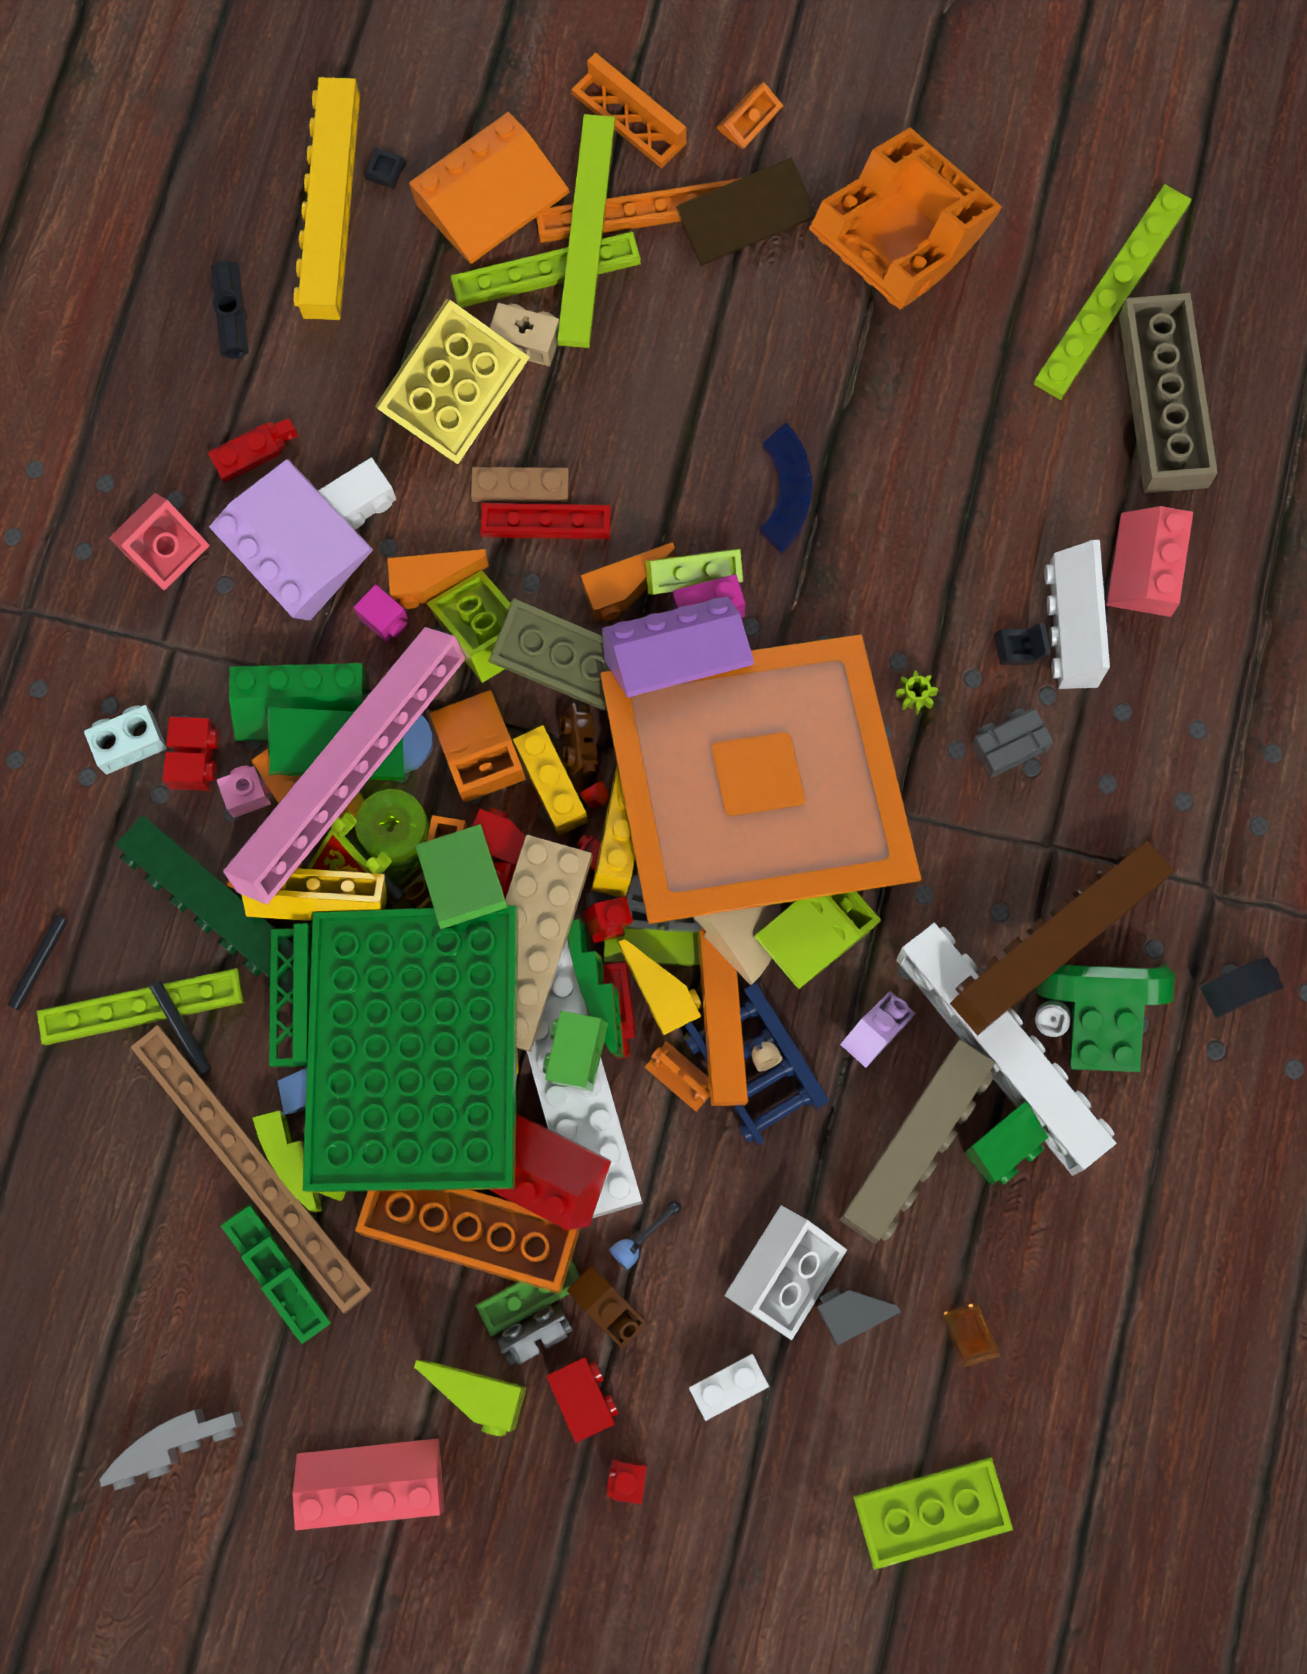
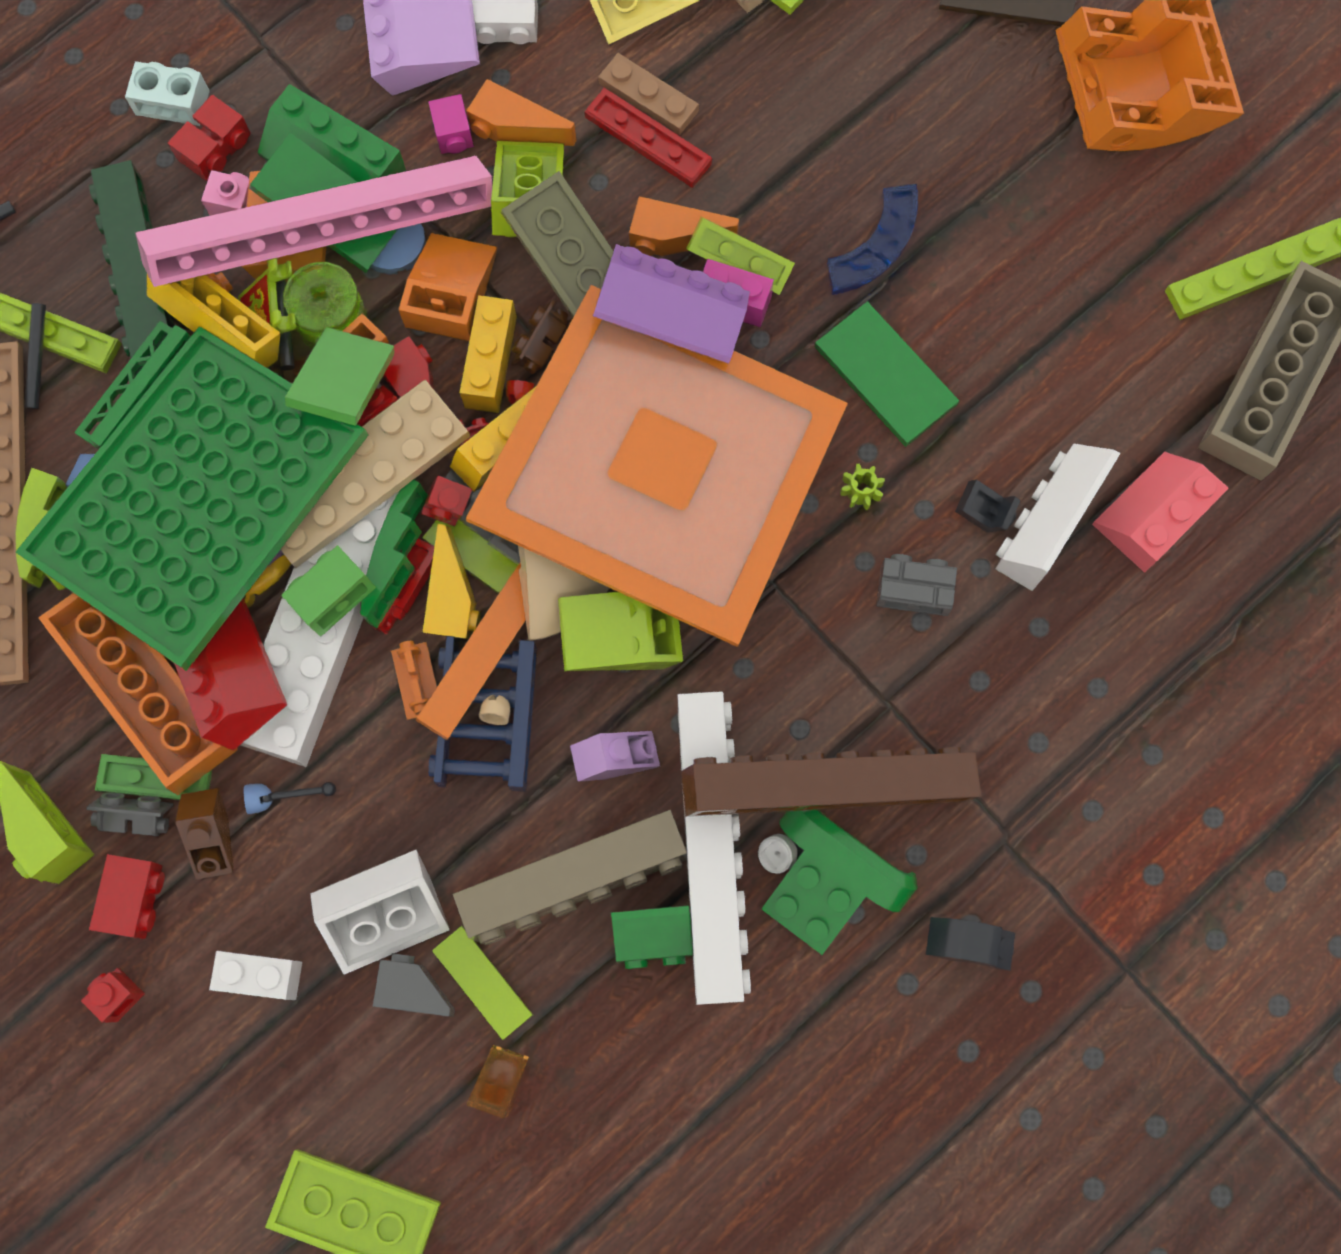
camera: 30 degrees right, 0 degrees up
(869, 590) = (886, 374): none -> green tile
(902, 1271) = (482, 983): none -> lime tile

